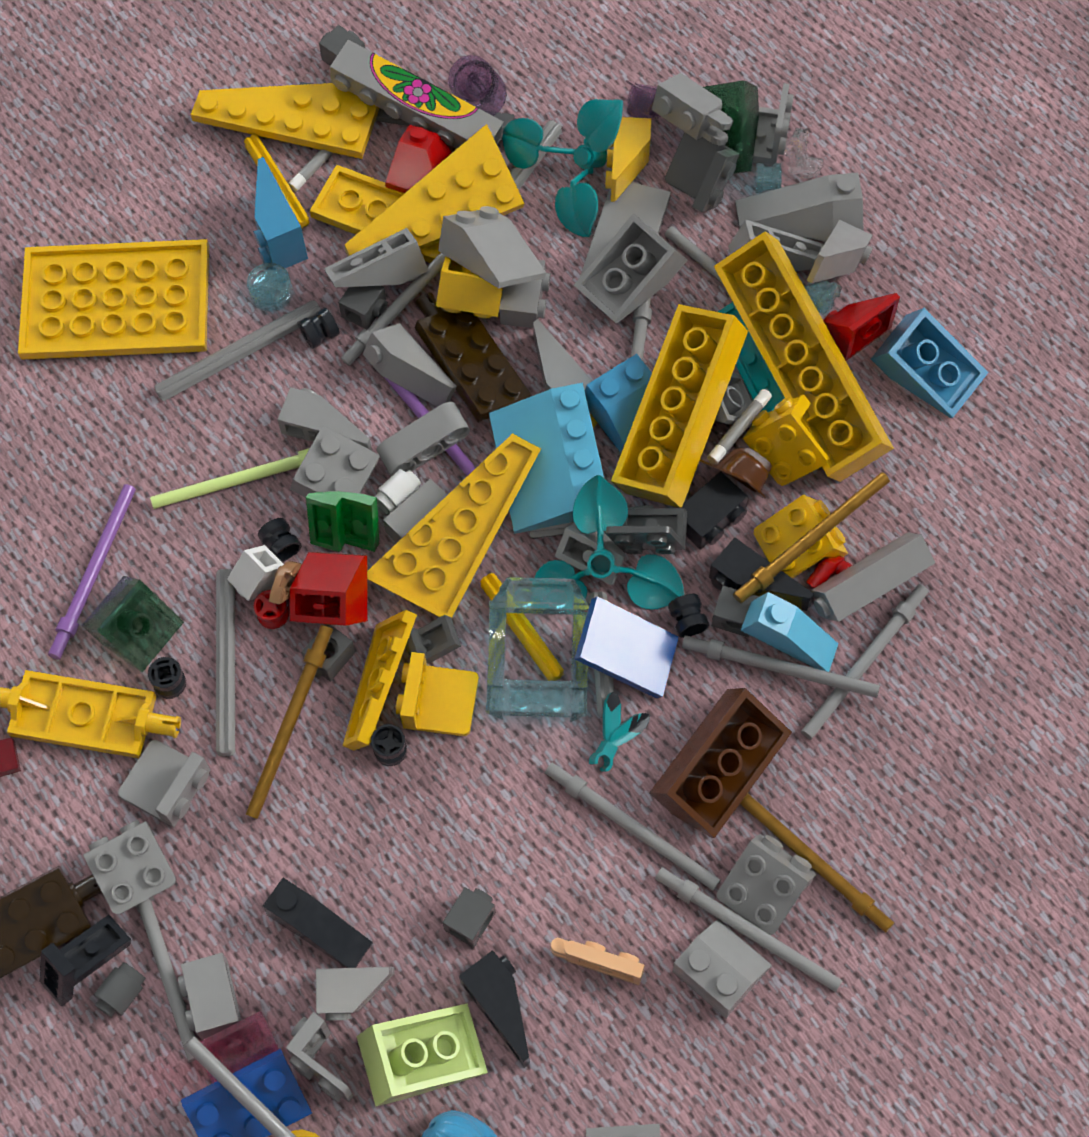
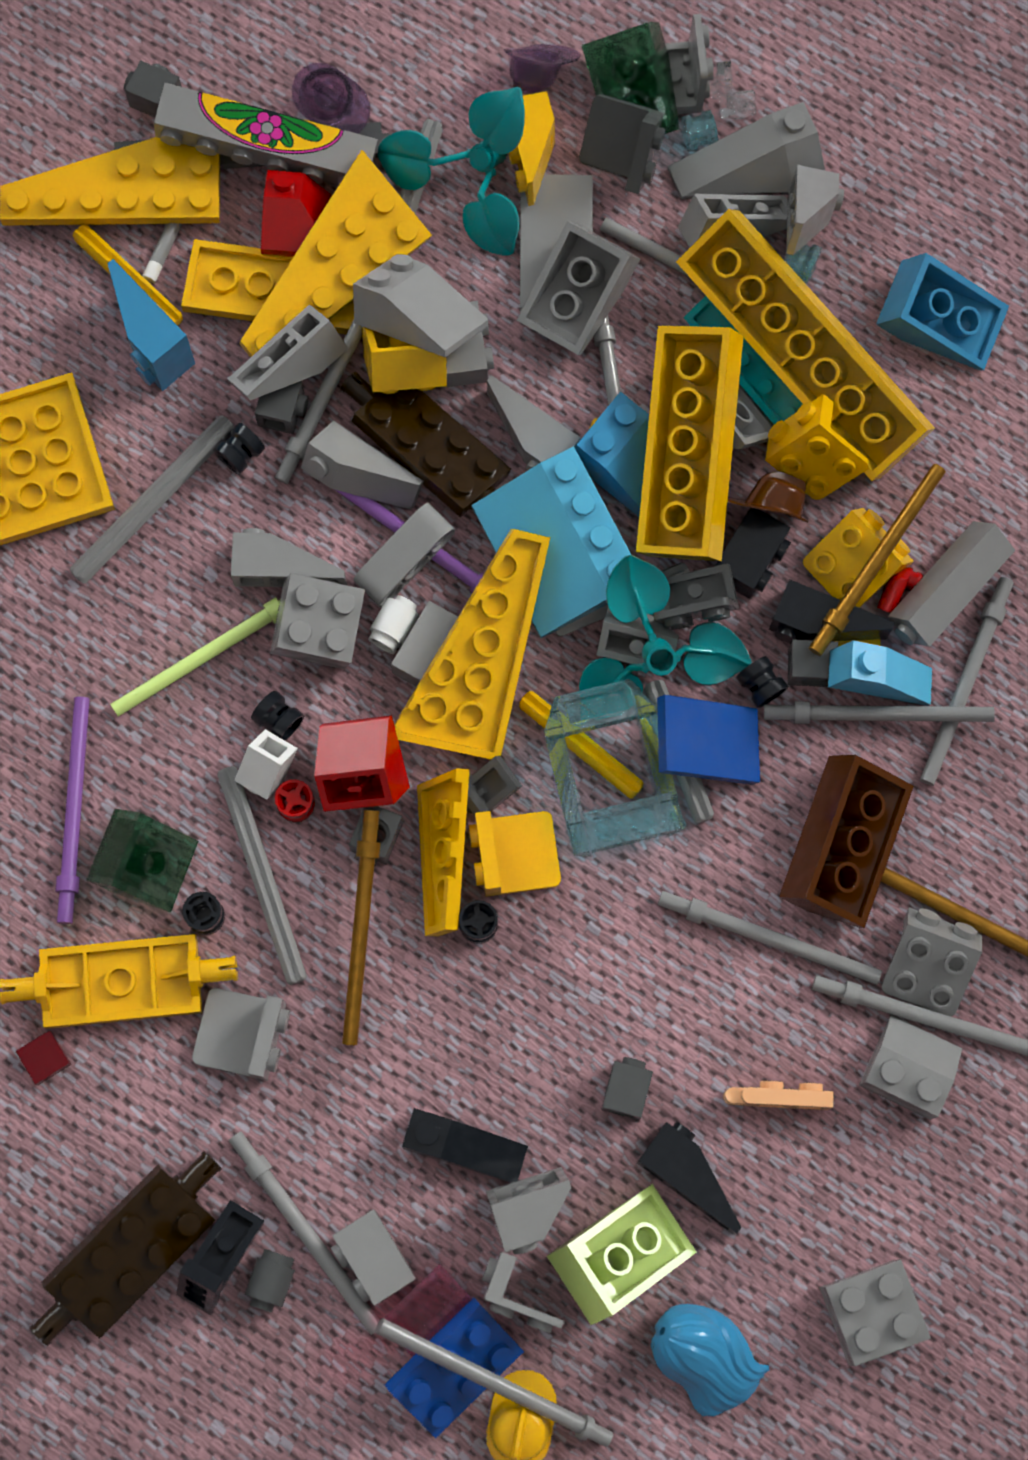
camera: 20 degrees left, 10 degrees up
(129, 867) = (236, 1141): light grey bracket -> none
(271, 288) = (165, 413): clear light blue wheel -> none
(283, 580) = (304, 767): medium nougat plate -> none
(343, 519) = (344, 675): green slope -> none
(614, 732) = (721, 837): teal piece -> none
(692, 109) = (597, 72): light grey hinge -> none
(739, 427) = (759, 448): light grey bar -> none
(861, 323) = (854, 284): red slope -> none

